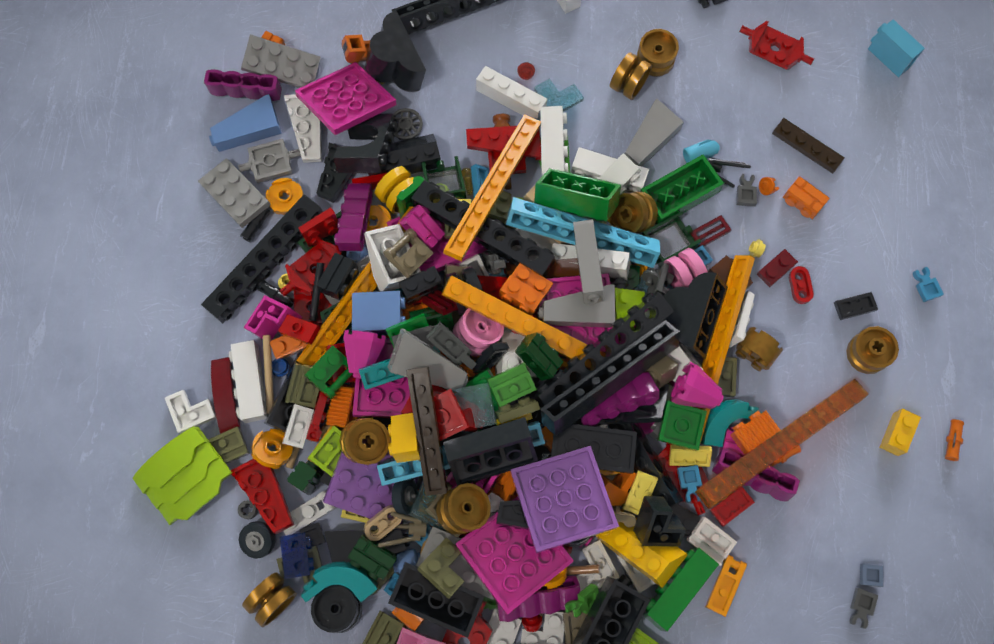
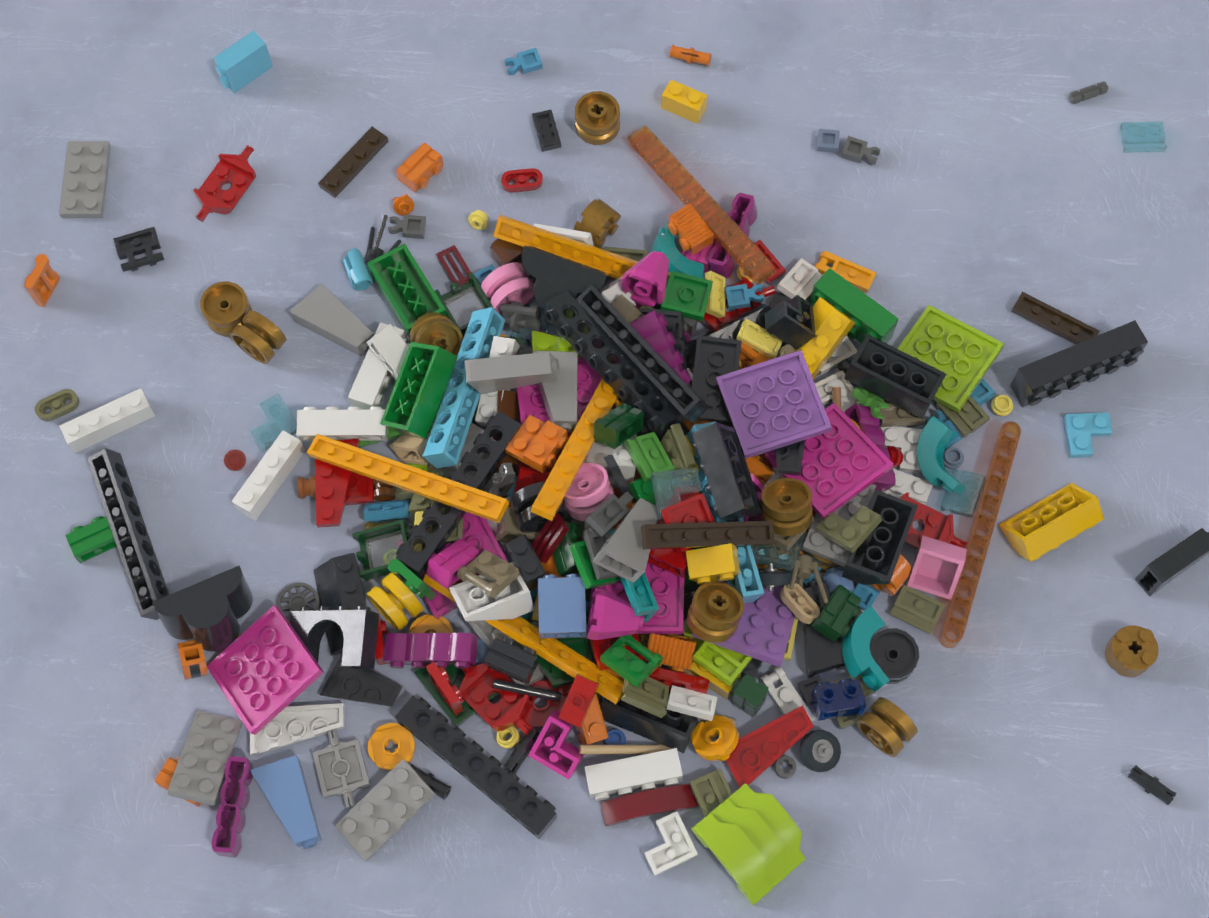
camera: 90 degrees left, 5 degrees down
(777, 267) = (499, 201): dark red plate -> none

